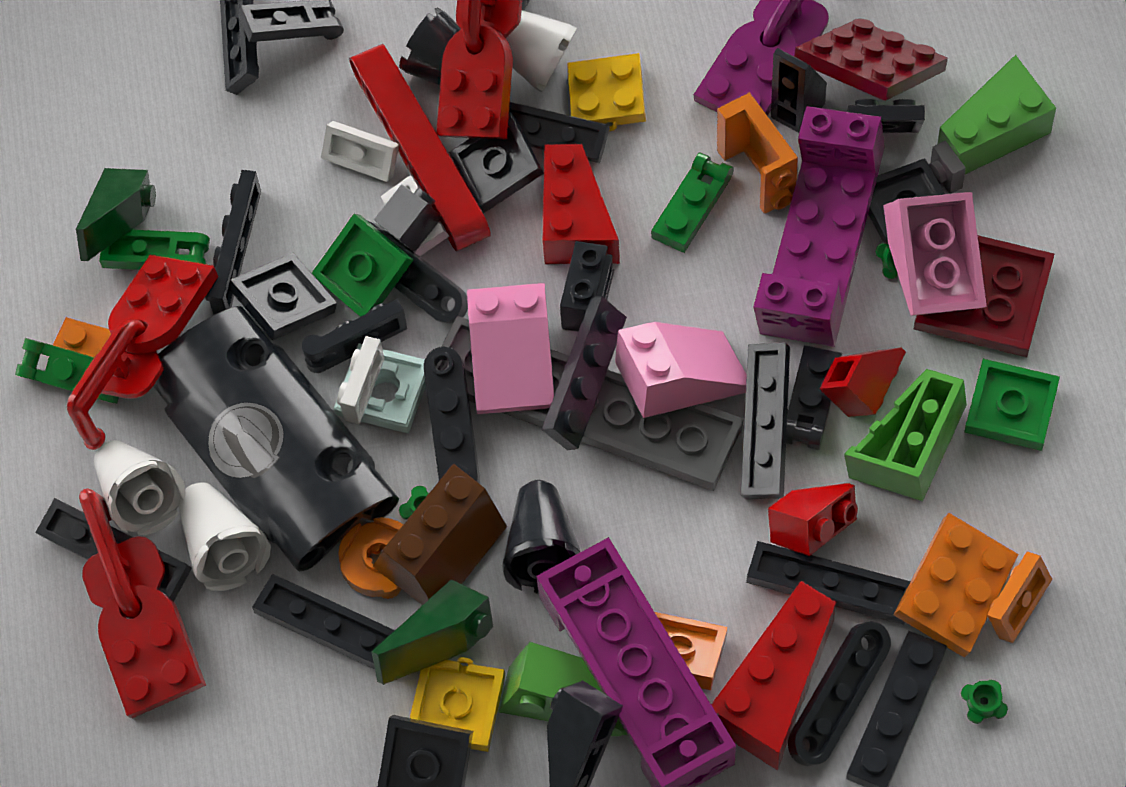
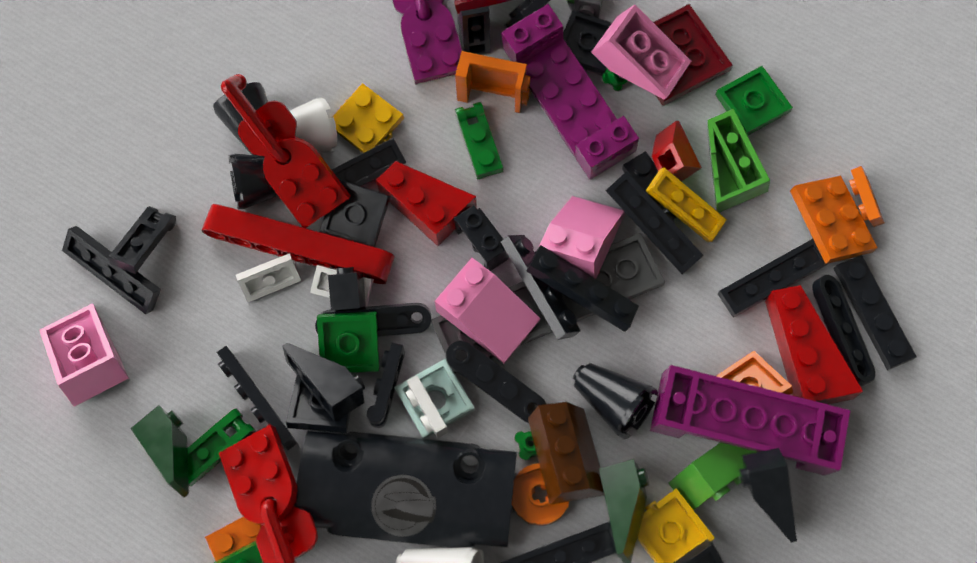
camera: 50 degrees left, 10 degrees up
(136, 77) = (82, 355): none -> bright pink slope
(303, 280) = (328, 382): none -> black slope
(619, 408) = (582, 288): none -> black plate
(812, 516) = (731, 252): red slope -> none
(816, 430) = (686, 205): none -> yellow tile
(984, 689) = (909, 258): green plate -> none

